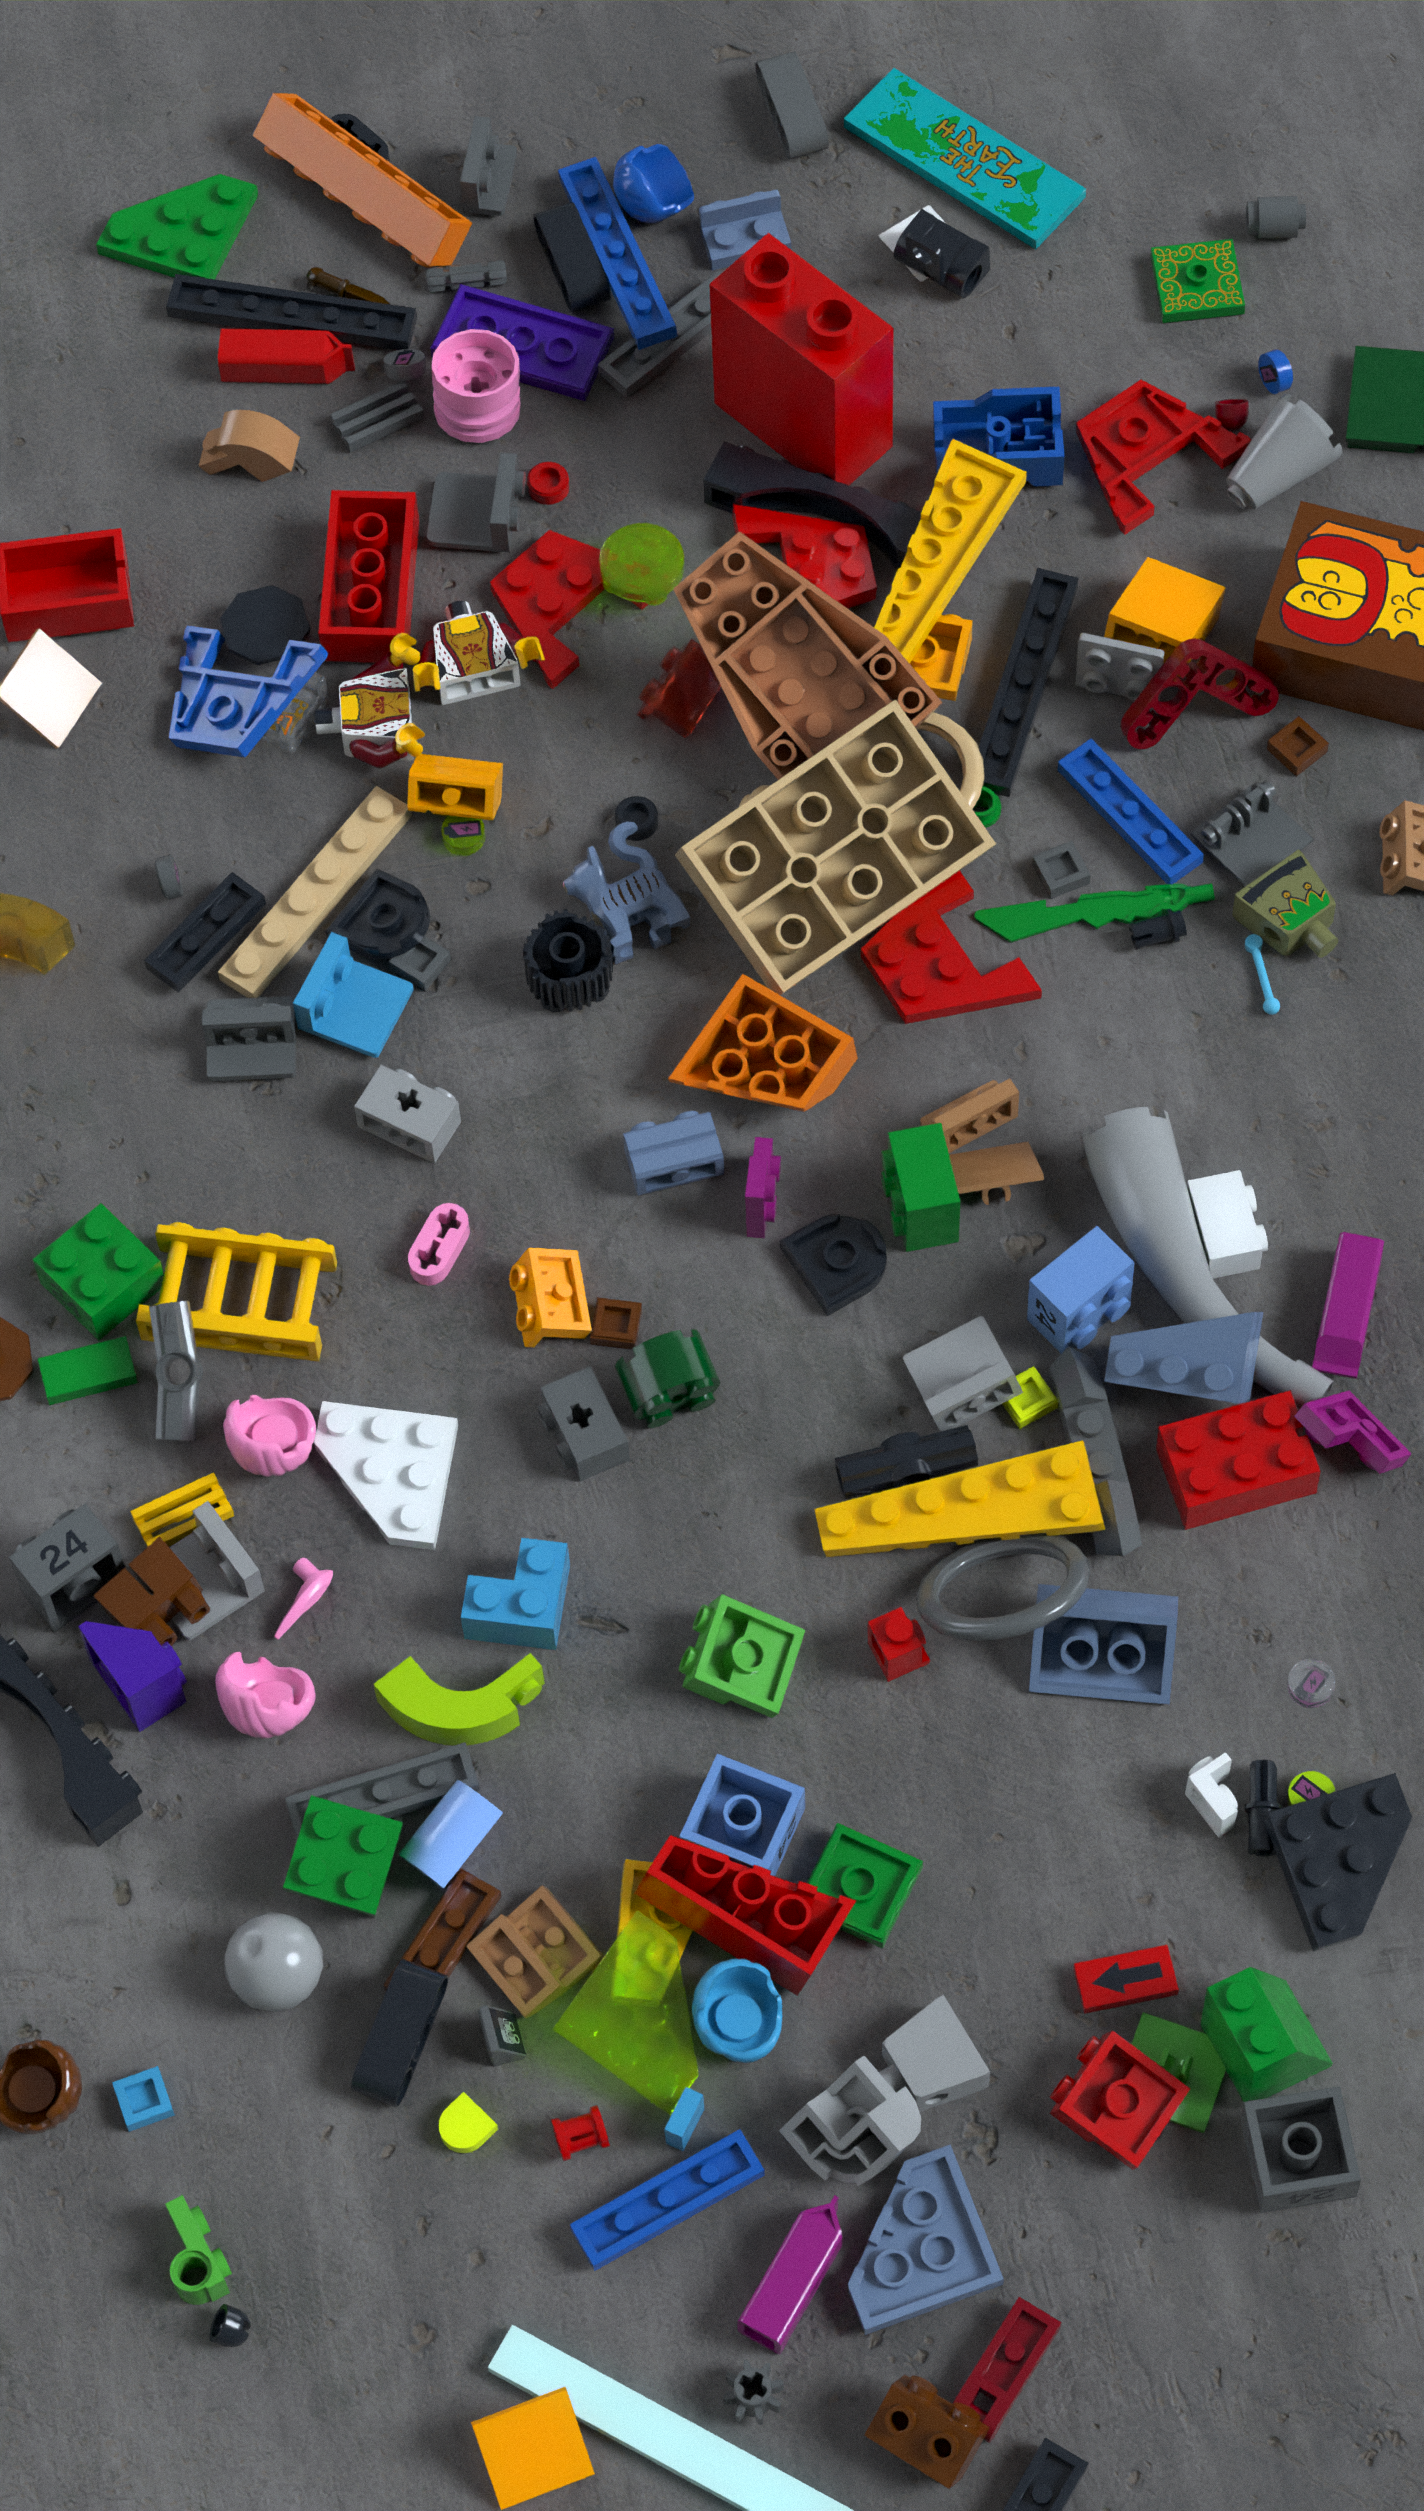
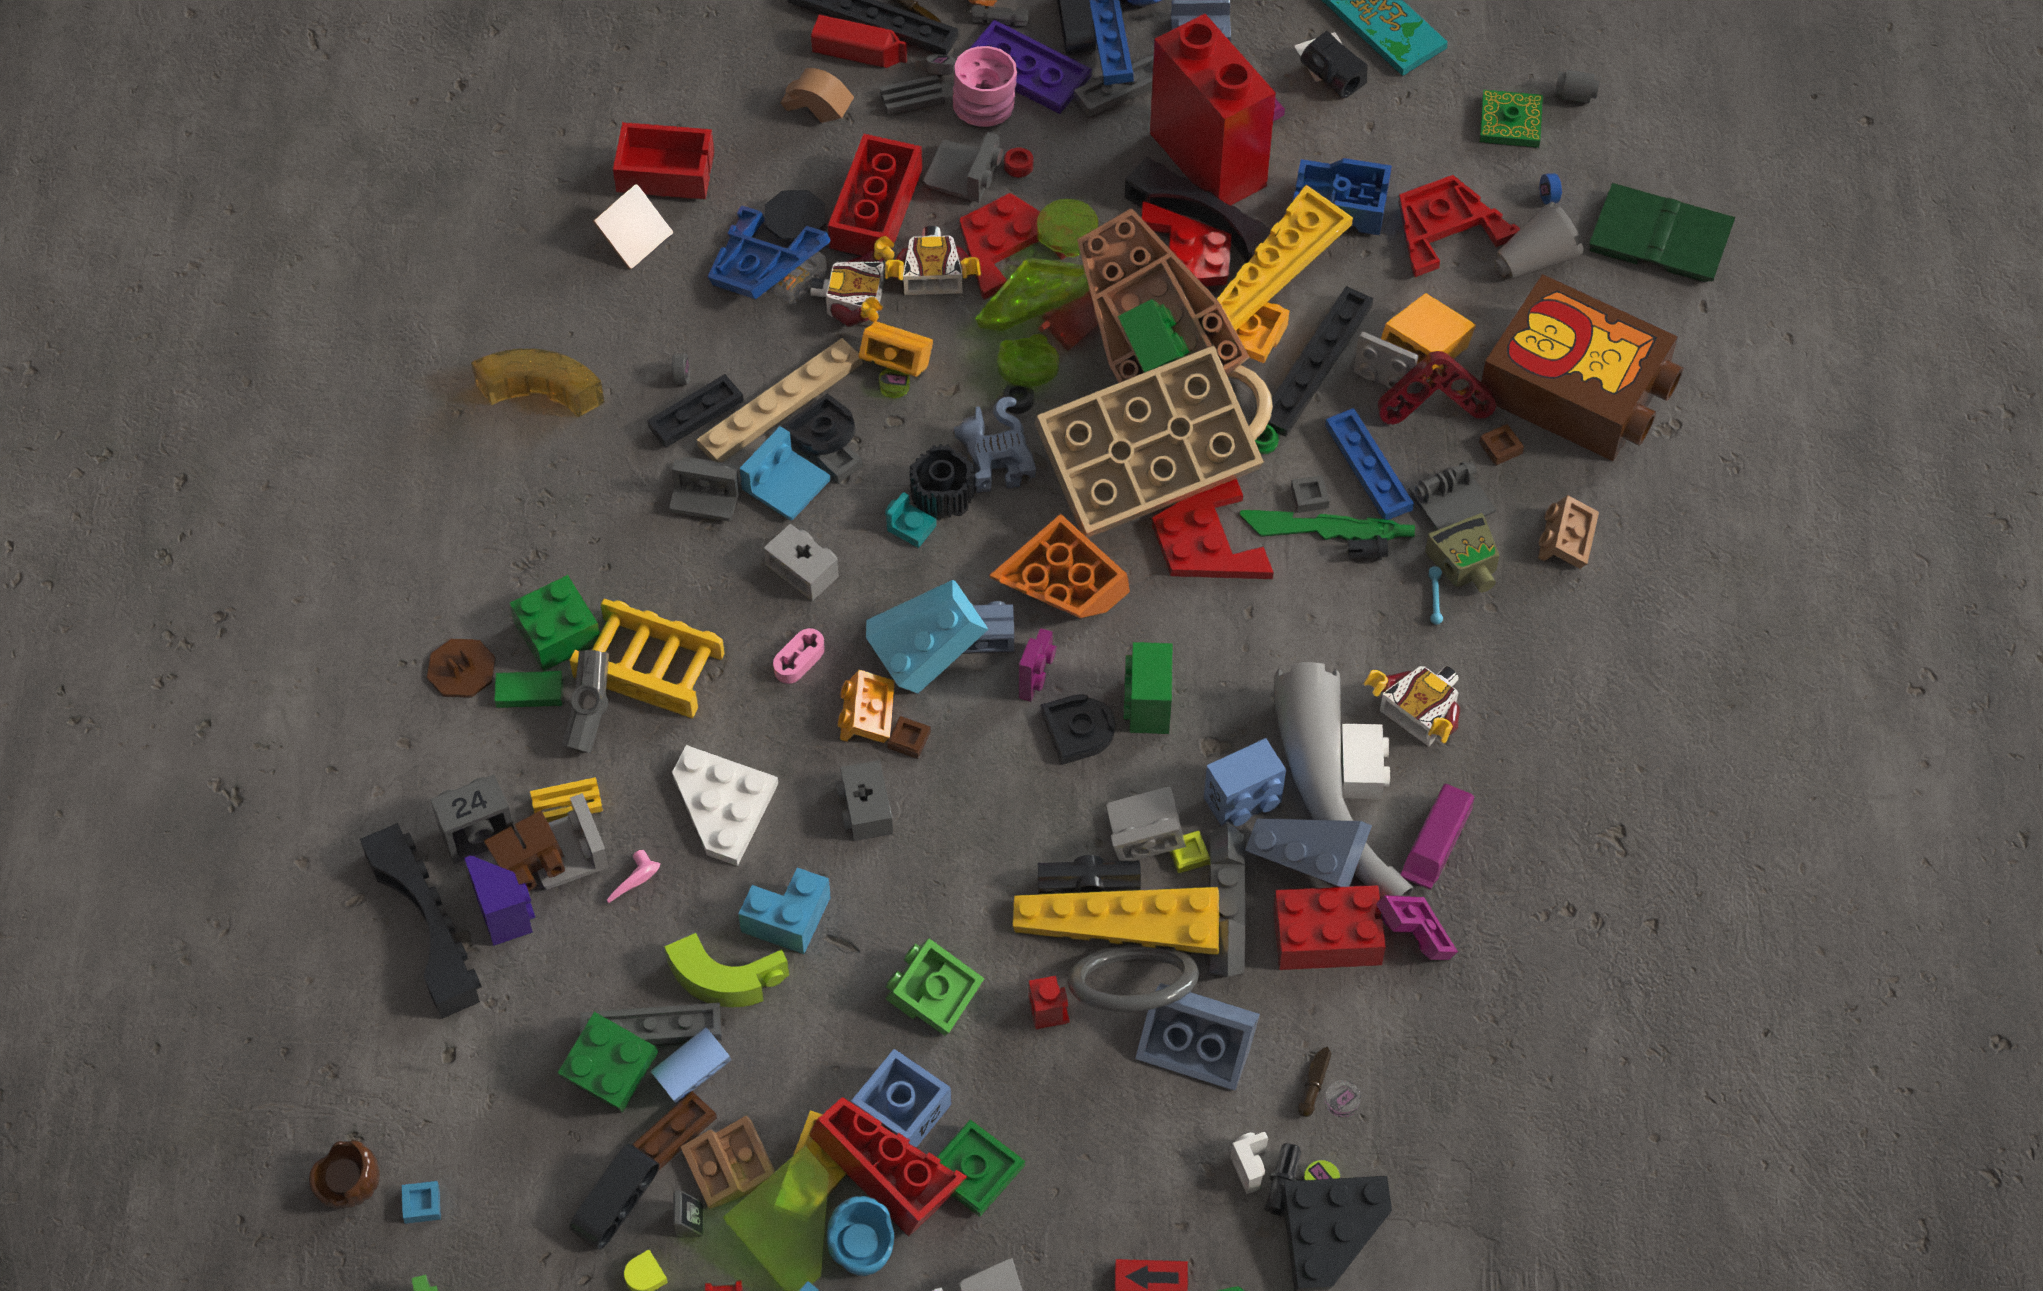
camera: 10 degrees right, 5 degrees down
(263, 1697) = (583, 938): bright pink piece -> none
(269, 1434) = (640, 758): bright pink piece -> none
(273, 1962) = (538, 1125): light grey piece -> none
(536, 1025) = (908, 521): none -> teal bracket
(603, 1179) = (924, 635): none -> medium azure wedge
(620, 665) = (1033, 290): none -> clear neon green plate
(637, 765) = (1028, 361): none -> clear neon green tile
(668, 1376) = (933, 780): dark green brick -> none
(809, 703) = (1152, 335): none -> green brick
(976, 1113) = (1202, 647): medium nougat bracket -> none
(995, 1168) = (1204, 687): medium nougat piece -> none
(1232, 413) = (1512, 211): dark red hinge -> none
(1269, 1666) = (1314, 1081): none -> dark brown piece
(1280, 1126) = (1419, 701): none -> torso

